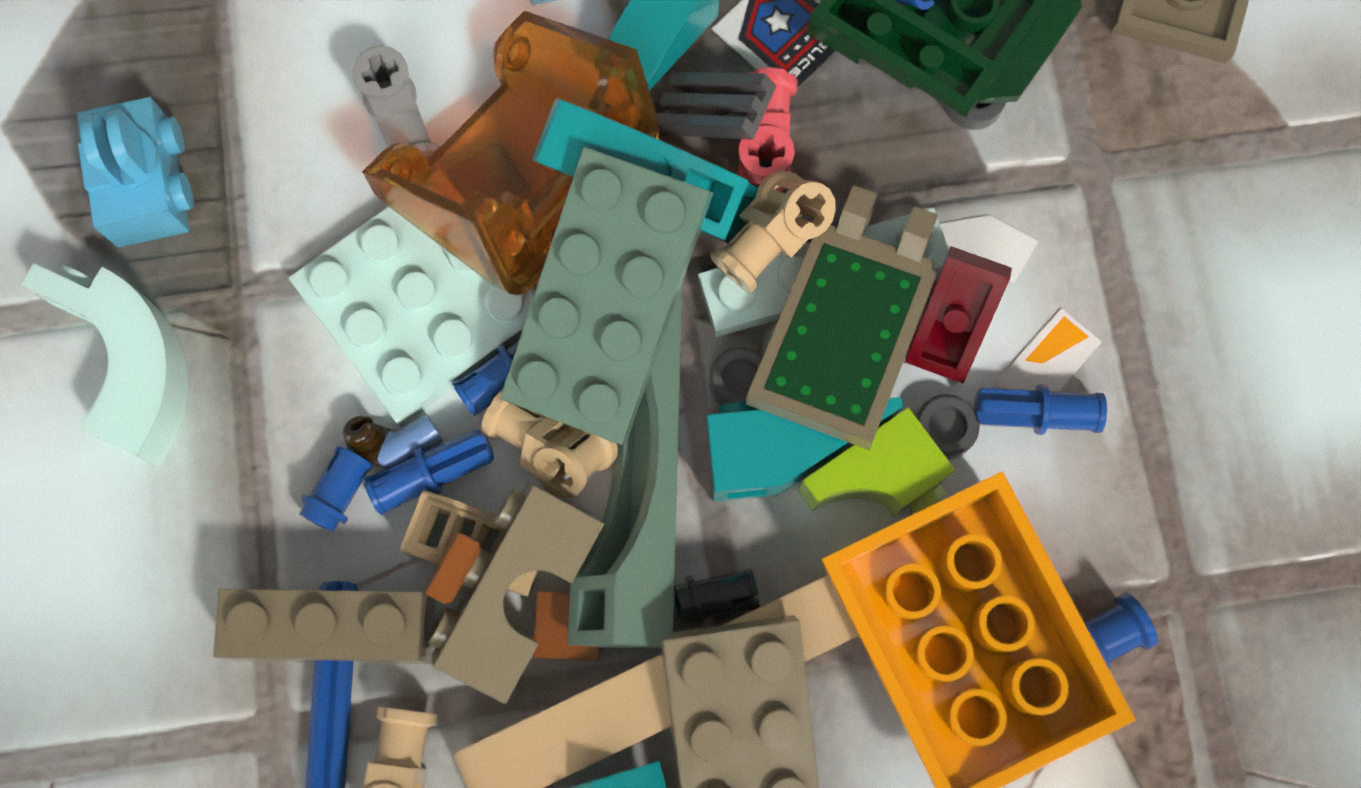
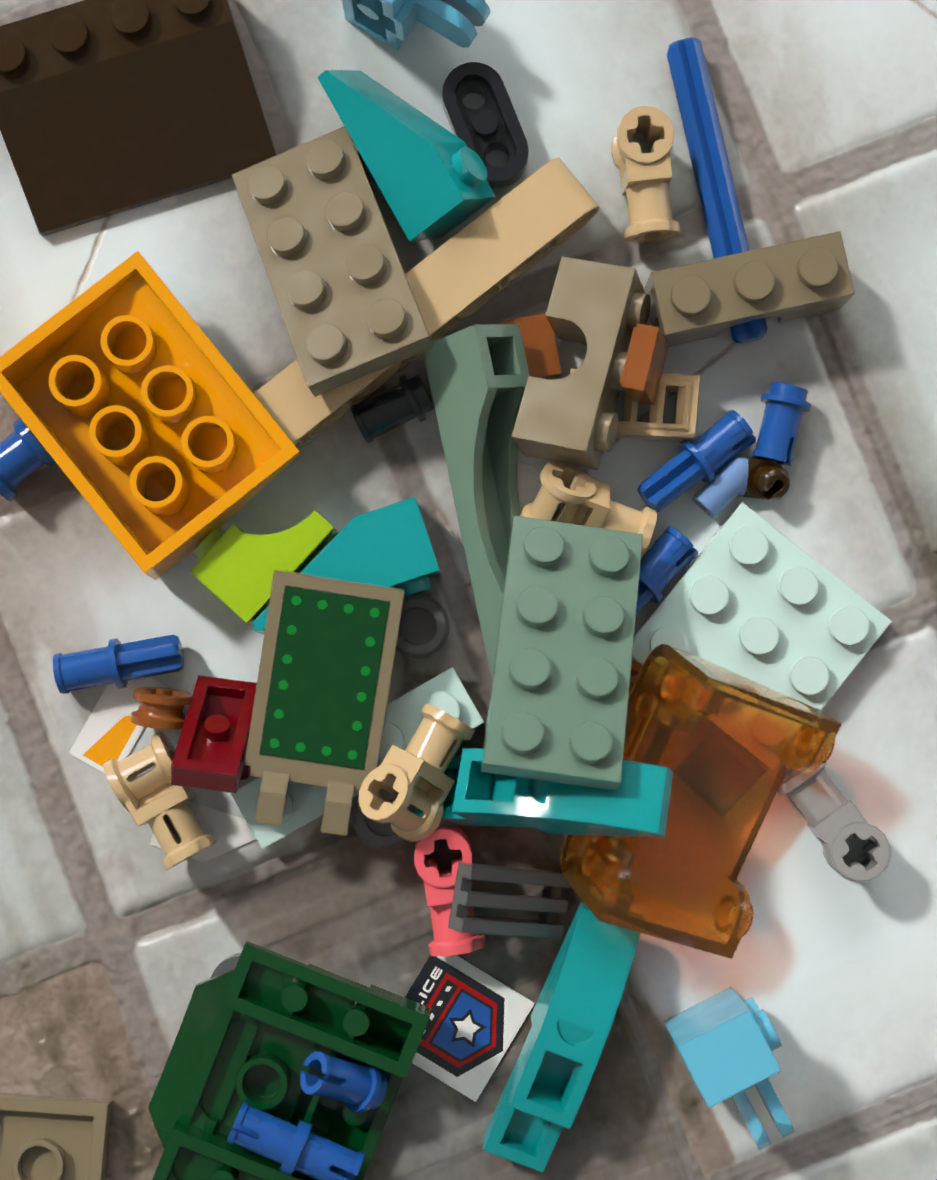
camera: 170 degrees right, 10 degrees up
(950, 424) = (206, 626): dark grey tile -> none
(1006, 355) = (160, 707): none -> dark orange bush
(1036, 283) = (157, 802): none -> tan connector

